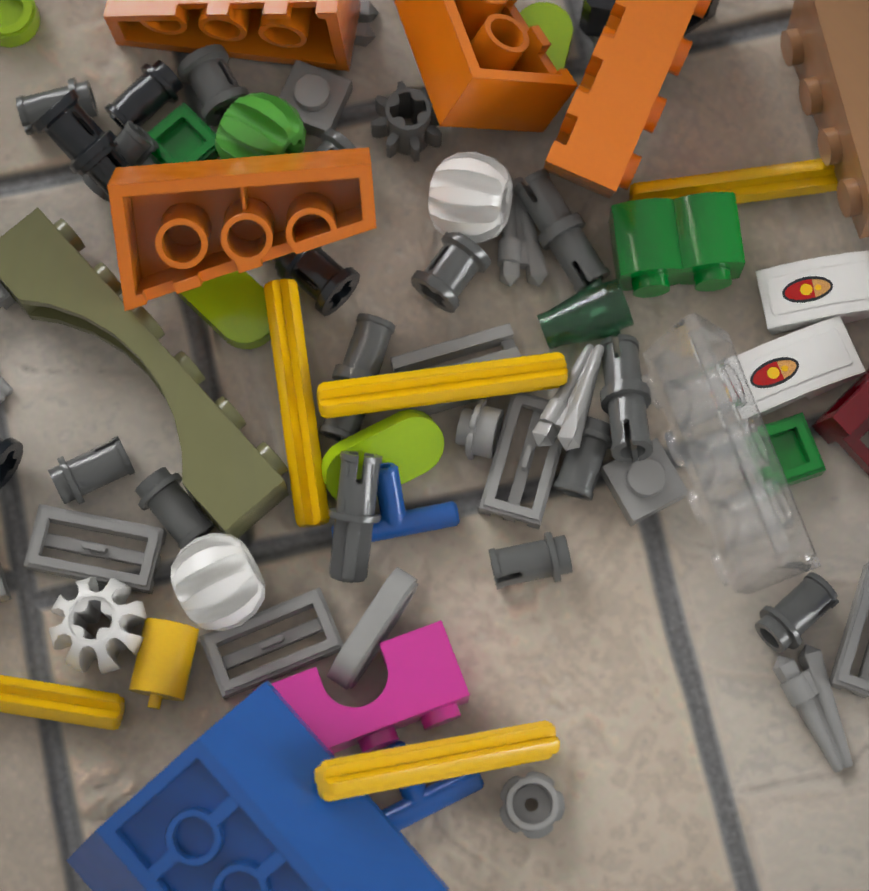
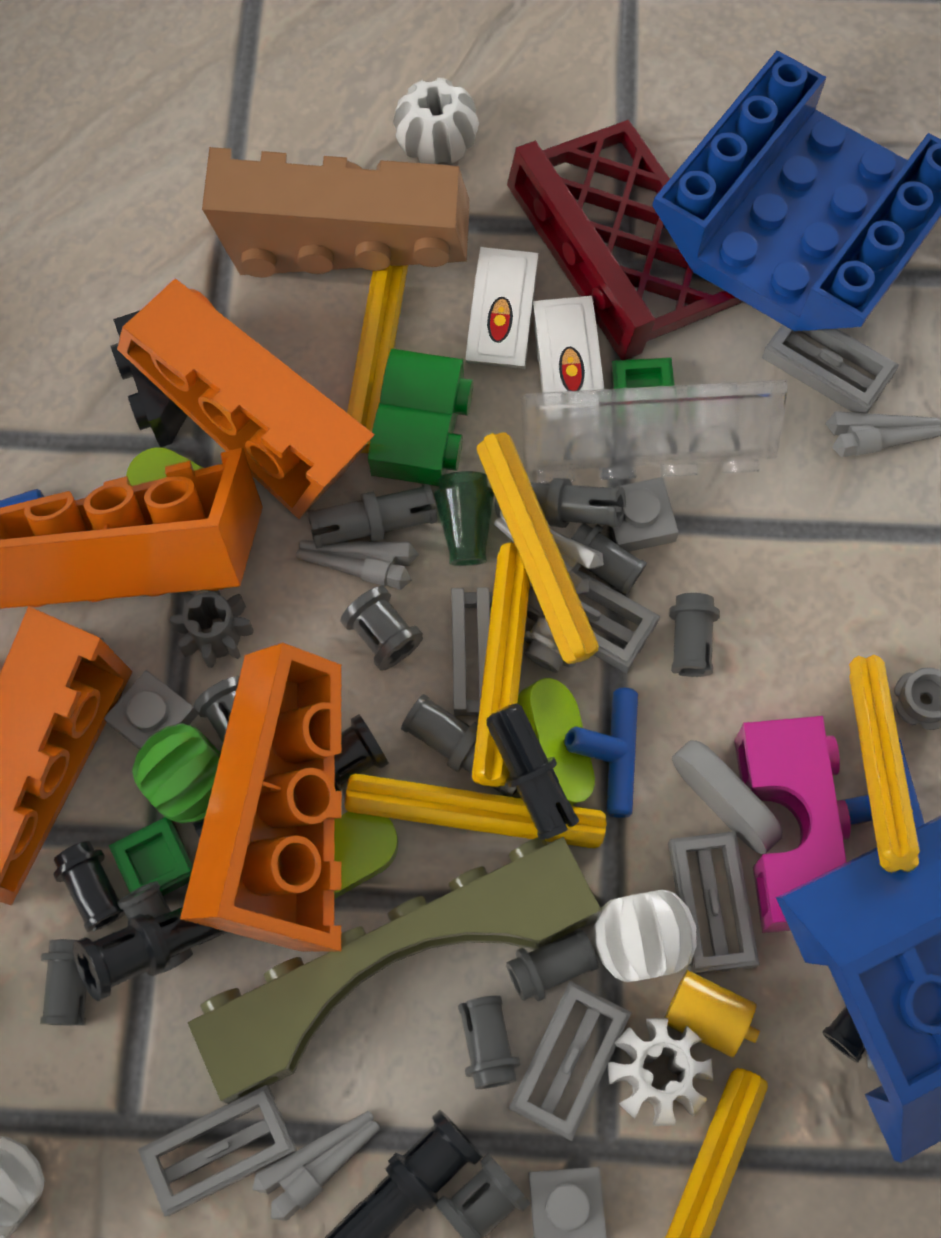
camera: 70 degrees left, 5 degrees down
(211, 81) = (102, 807): dark grey bush -> none
(334, 431) = (531, 771): none -> black axle
(354, 517) = (615, 780): dark grey axle -> none
(471, 196) = (314, 585): white piece -> none
(563, 381) = (537, 548): none -> yellow axle
(794, 614) = (802, 426): dark grey pin -> none

